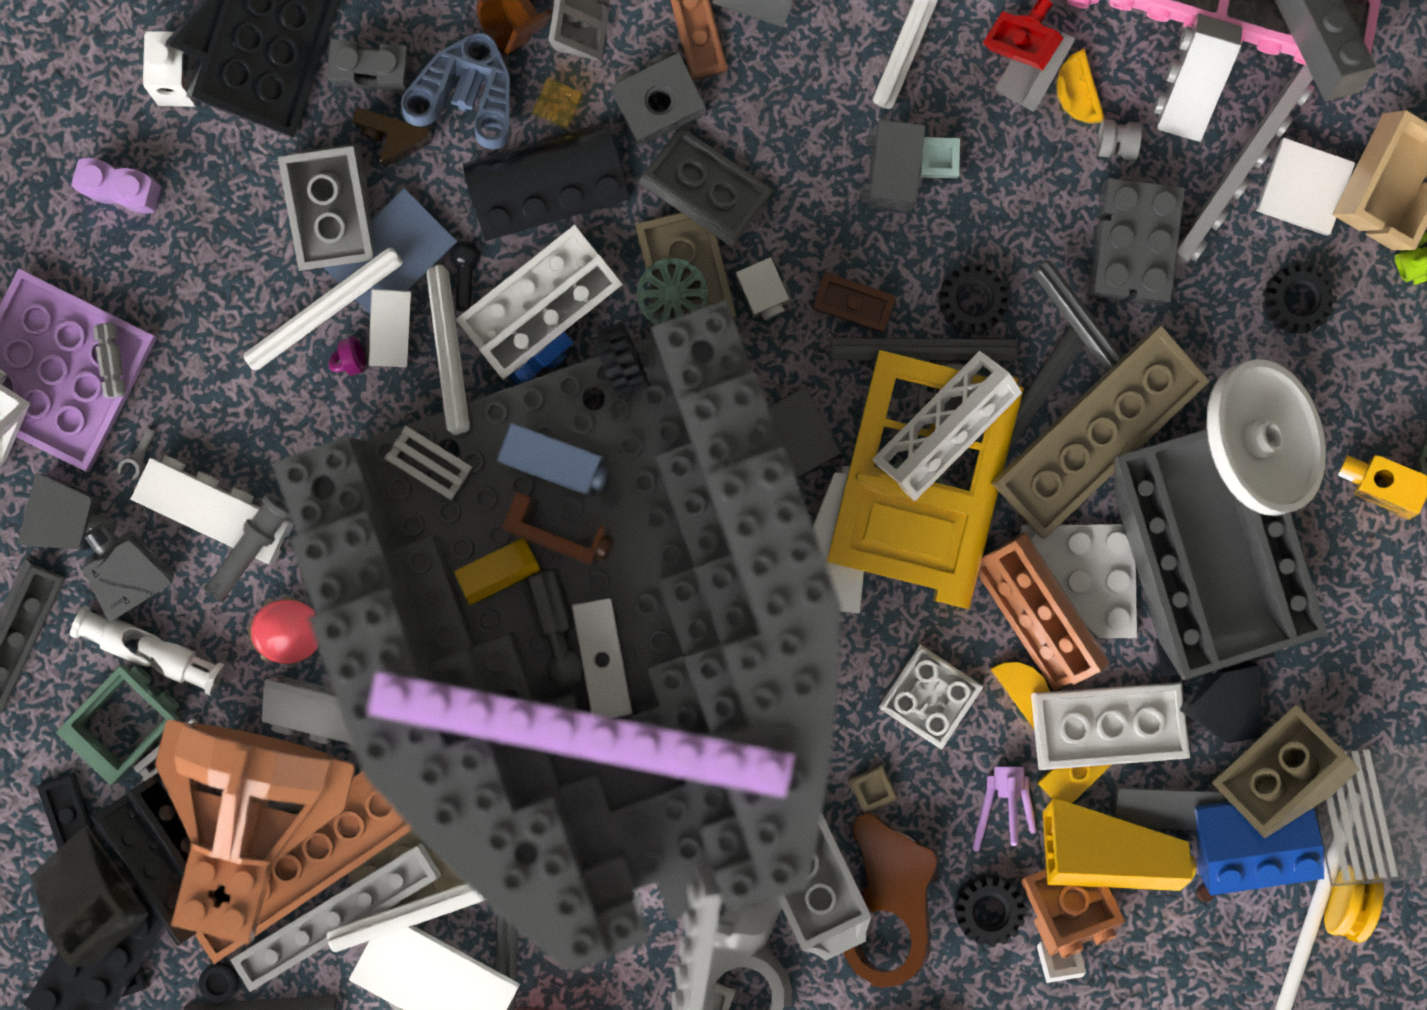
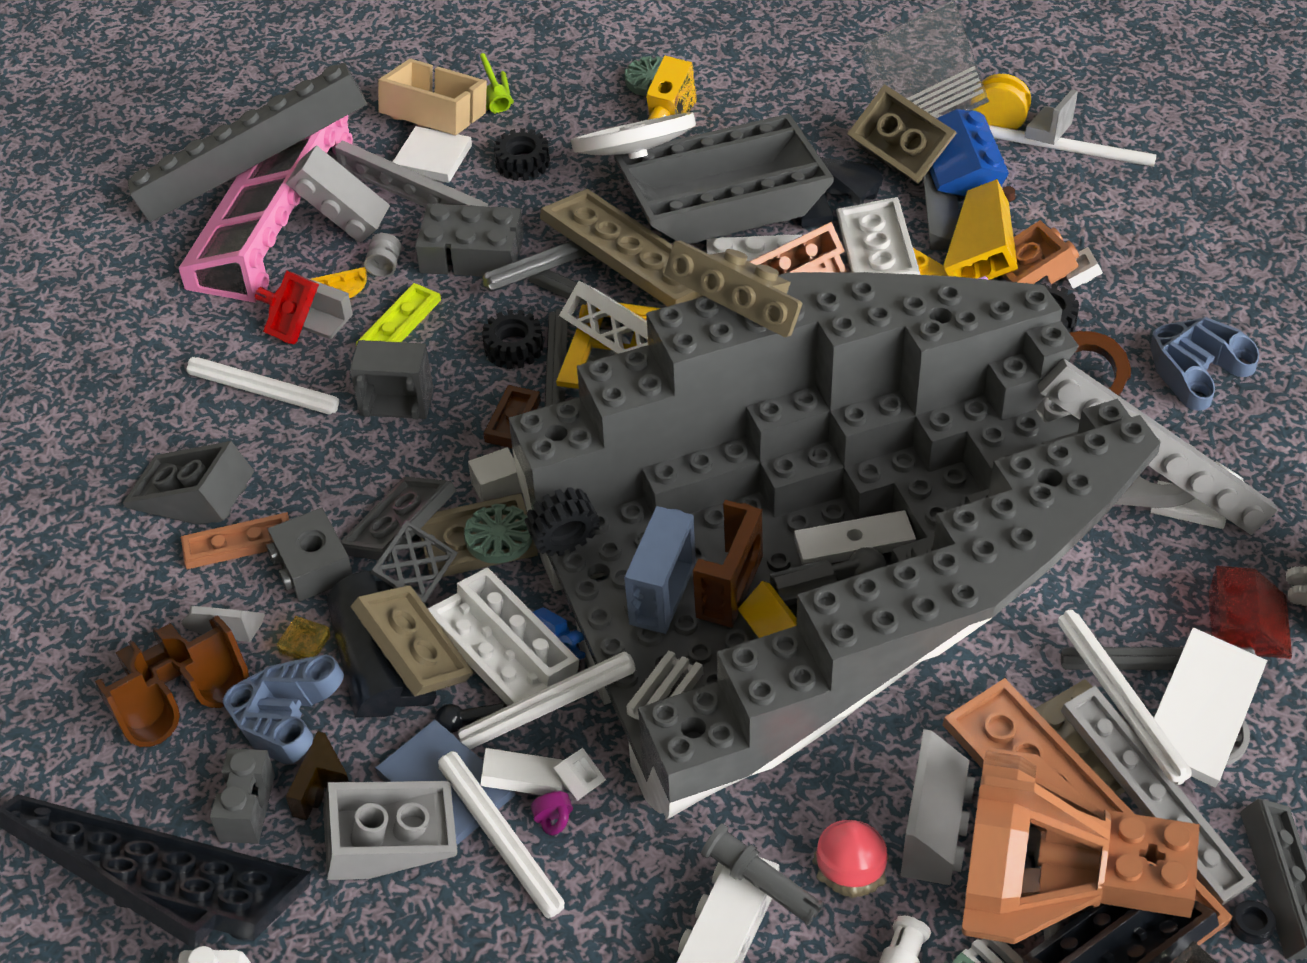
camera: 90 degrees left, 40 degrees down
(382, 382) = (579, 774): none -> white plate
(527, 213) = (412, 640): none -> dark tan plate
(580, 734) = (925, 442): lavender plate -> none
(623, 233) = (429, 540): none -> dark grey window
(800, 550) = (737, 285): none -> dark tan bracket
(1016, 166) = (403, 315): none -> neon yellow tile
(1324, 961) = (1052, 122): none -> light grey panel

